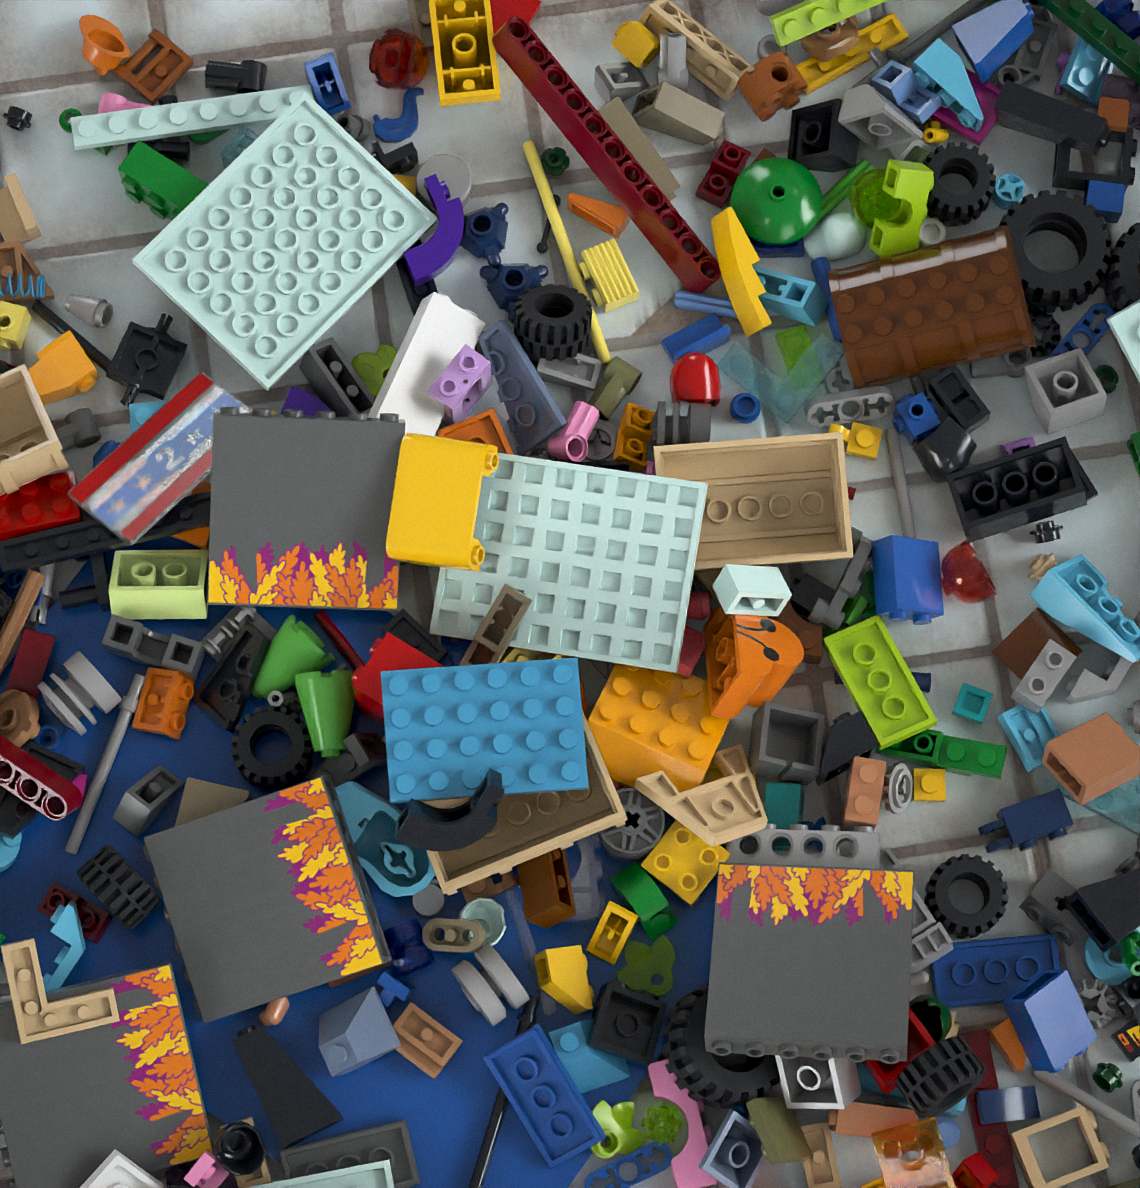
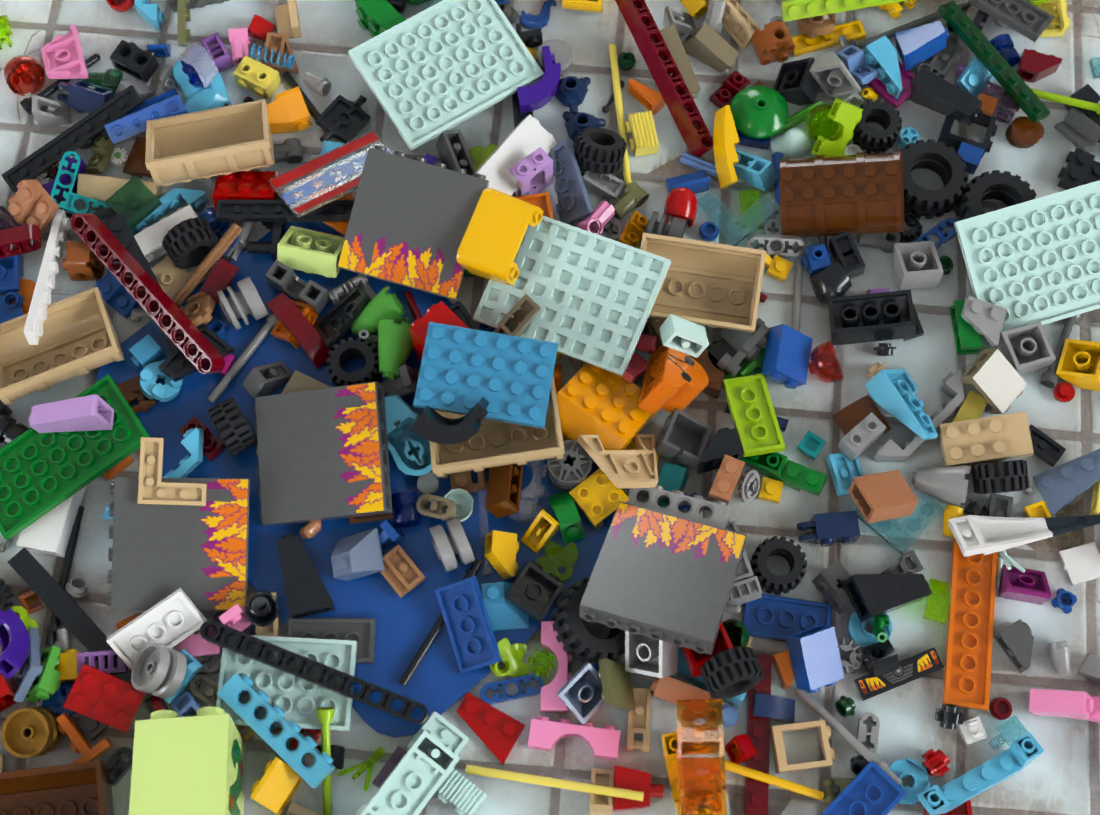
camera: 15 degrees right, 5 degrees down
(176, 711) = (300, 329): none -> dark red slope

